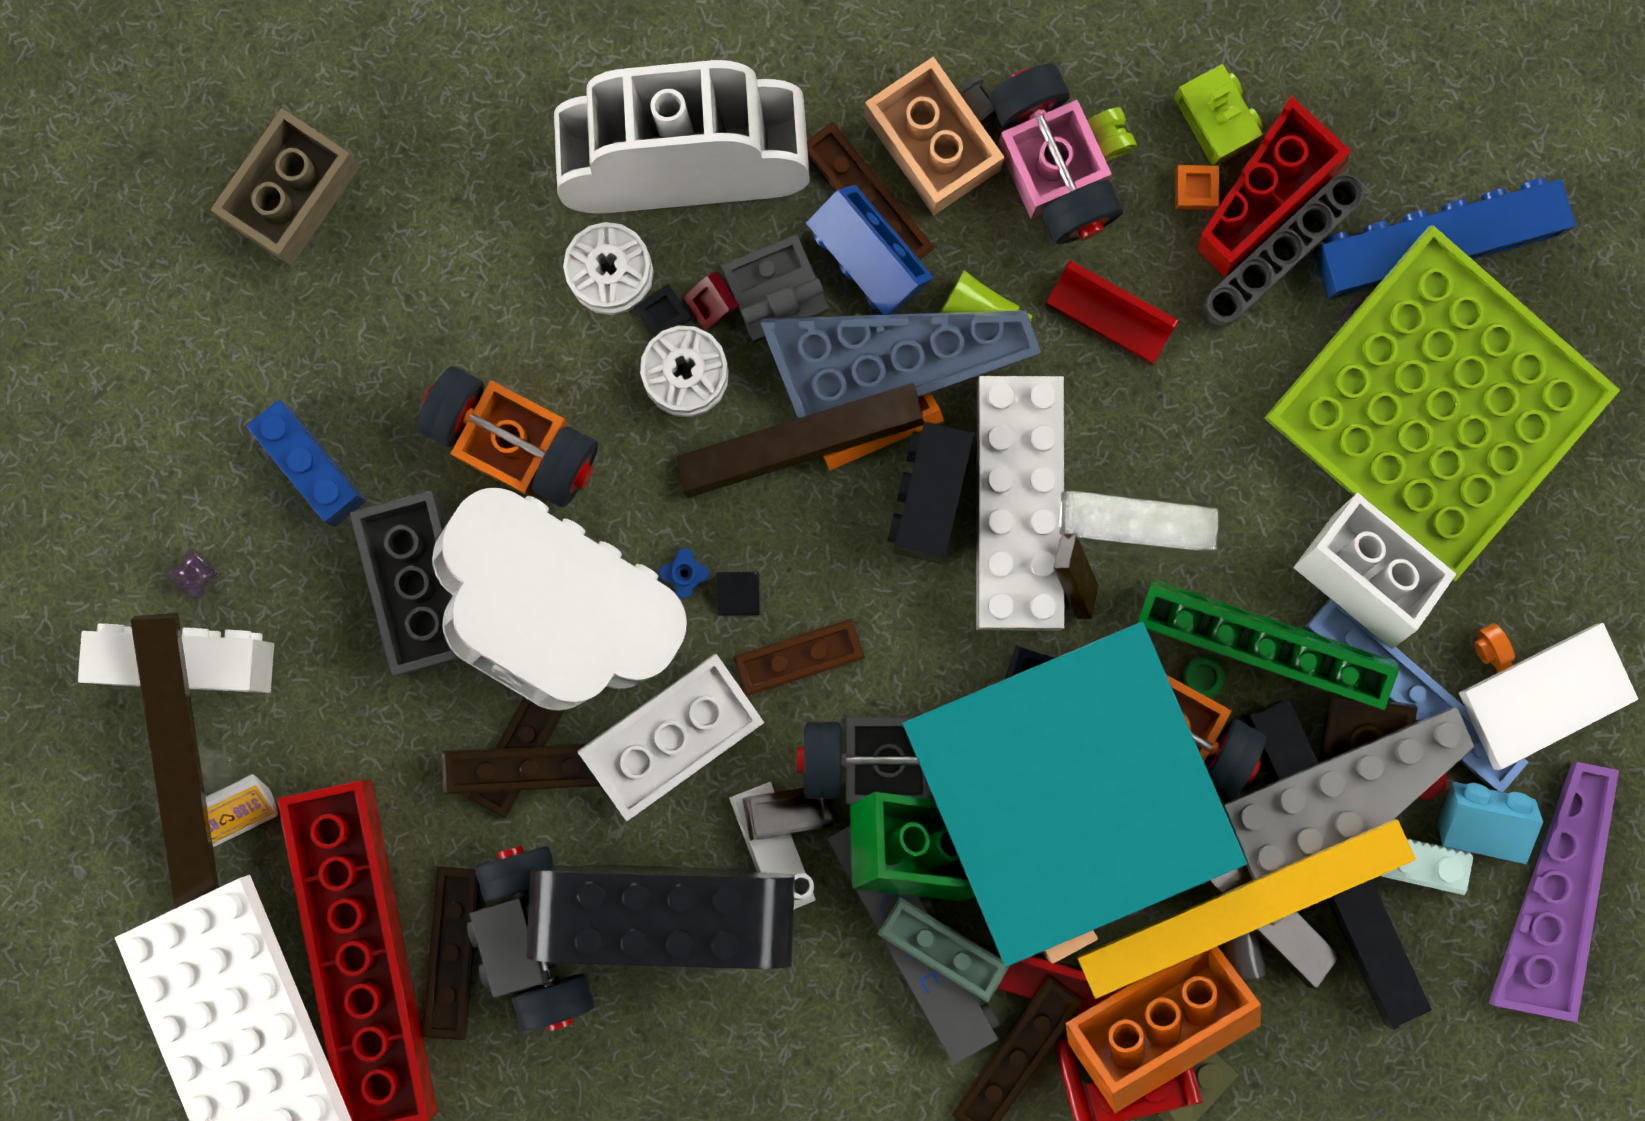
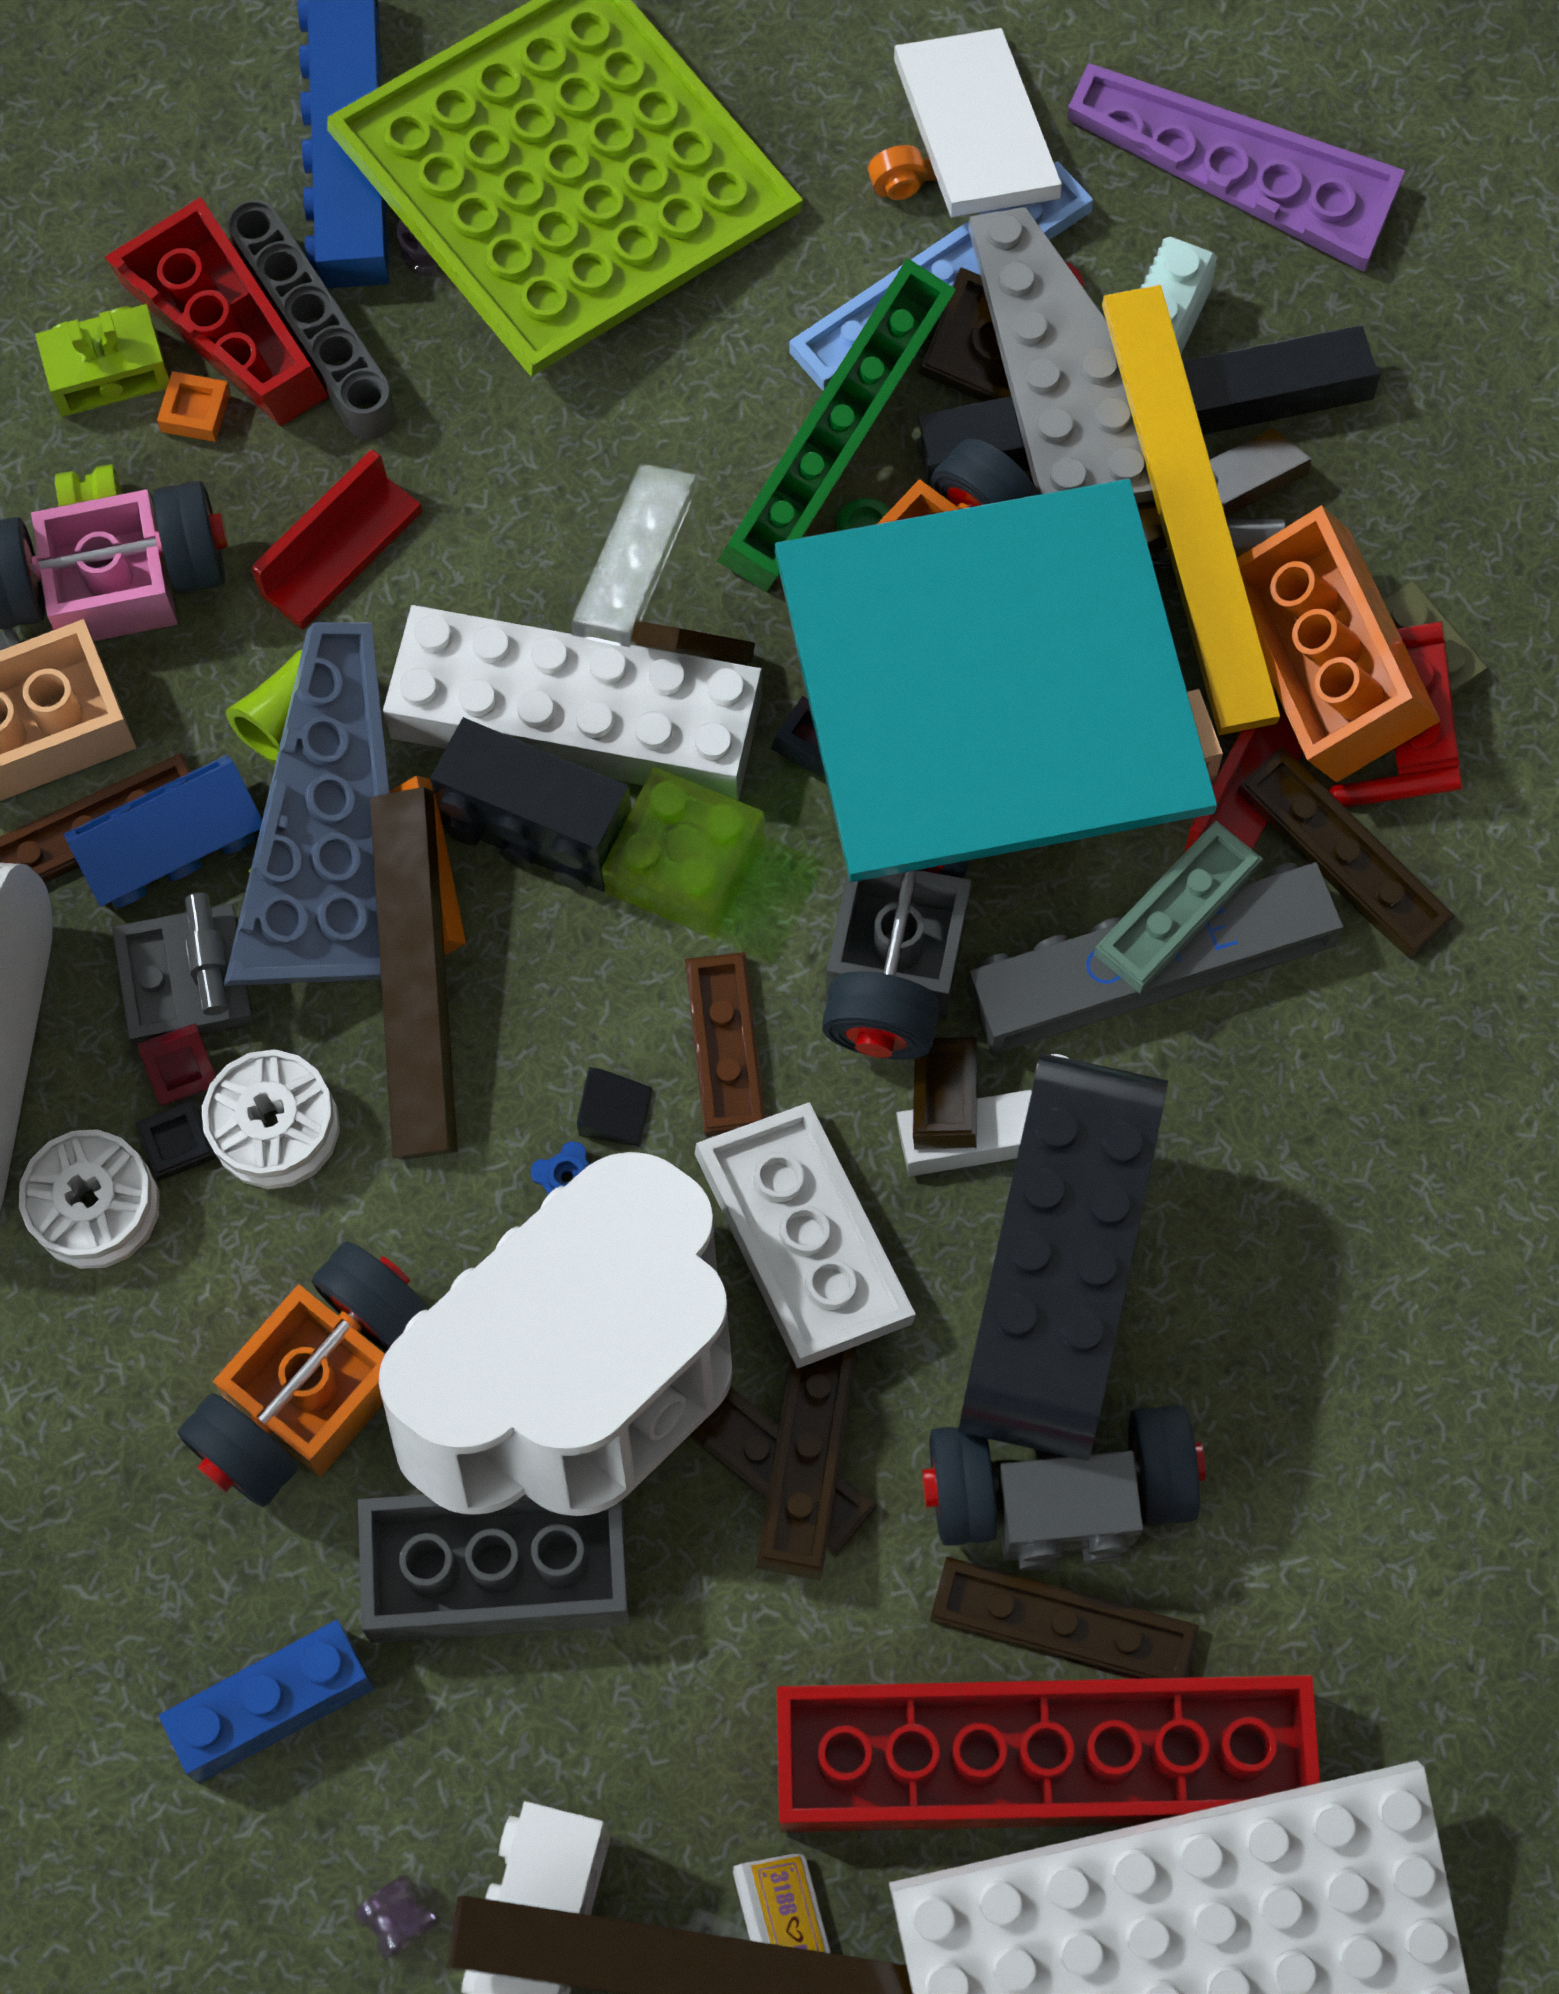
camera: 80 degrees left, 15 degrees down
(904, 849) = (1028, 916): green brick -> none
(924, 602) = (684, 852): none -> clear neon green brick
(1375, 571) = (768, 281): white brick -> none
(1489, 822) = (1127, 216): medium azure brick -> none

